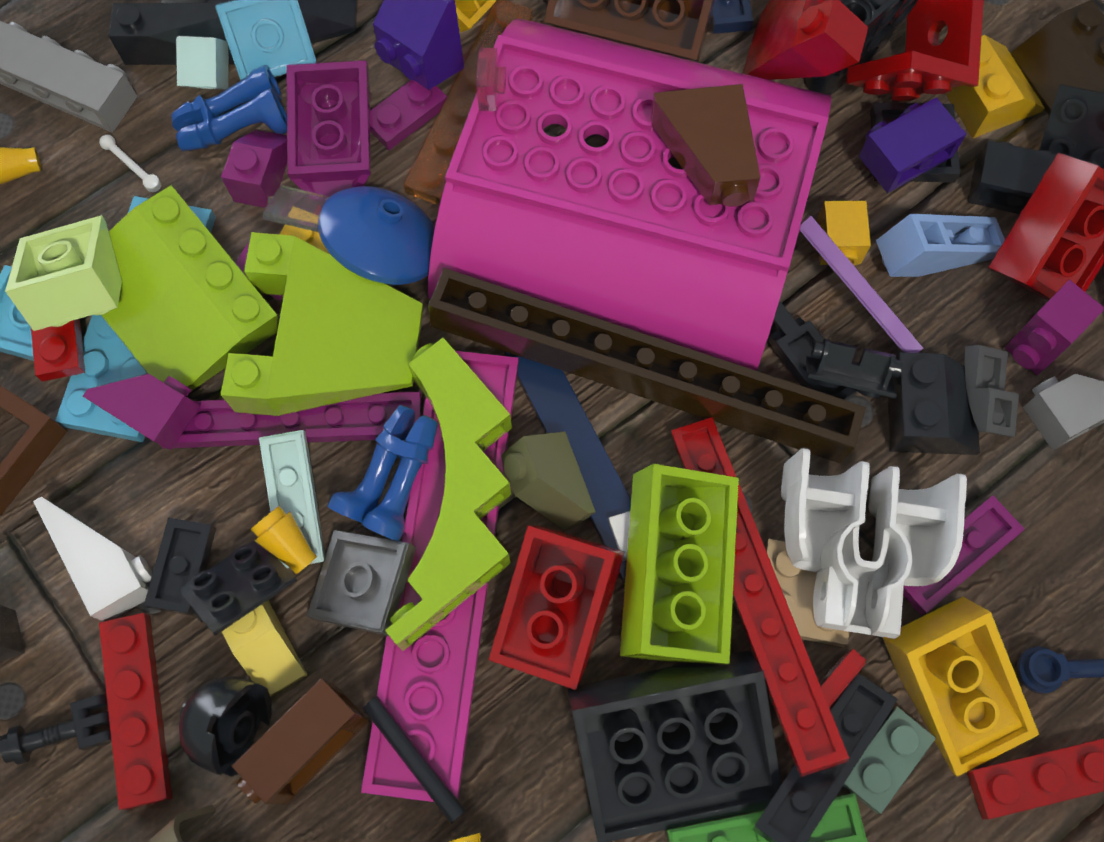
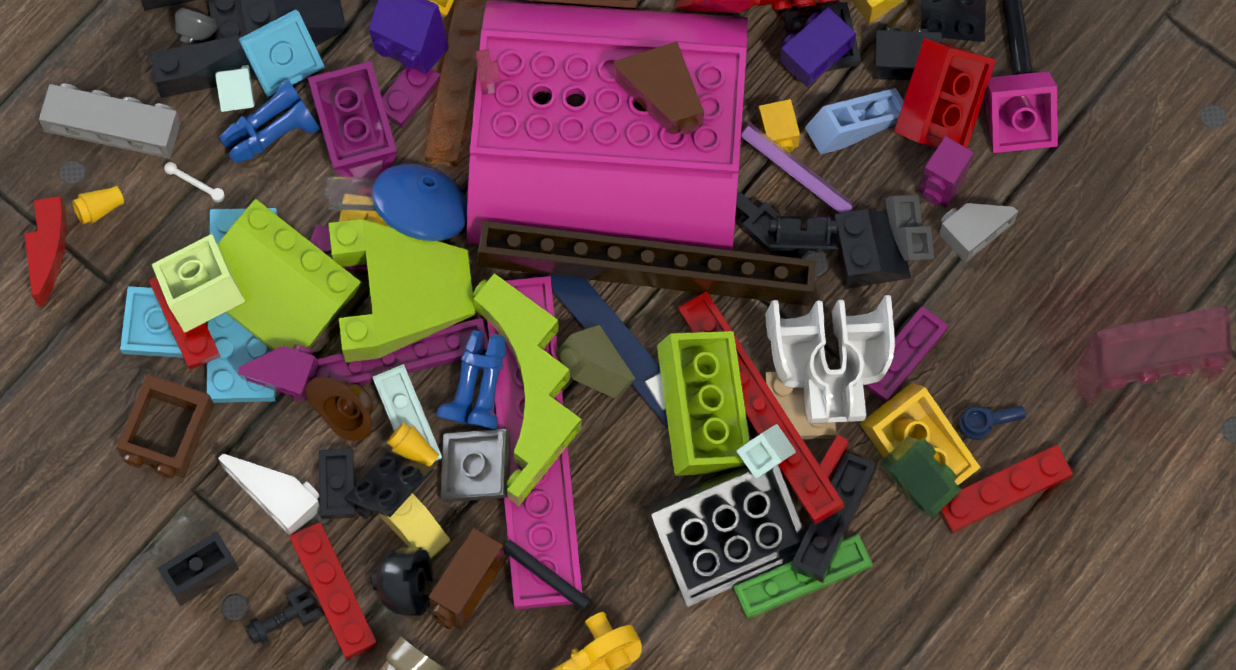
camera: 15 degrees left, 0 degrees up
(214, 466) = (343, 406): none -> reddish brown piece
(255, 167) = (304, 165): magenta slope -> none
(555, 605) = (621, 450): red slope -> none
(752, 657) = (766, 451): none -> light aqua panel
(888, 760) = (876, 509): sand green plate -> none
(962, 736) = (921, 476): none -> clear green brick

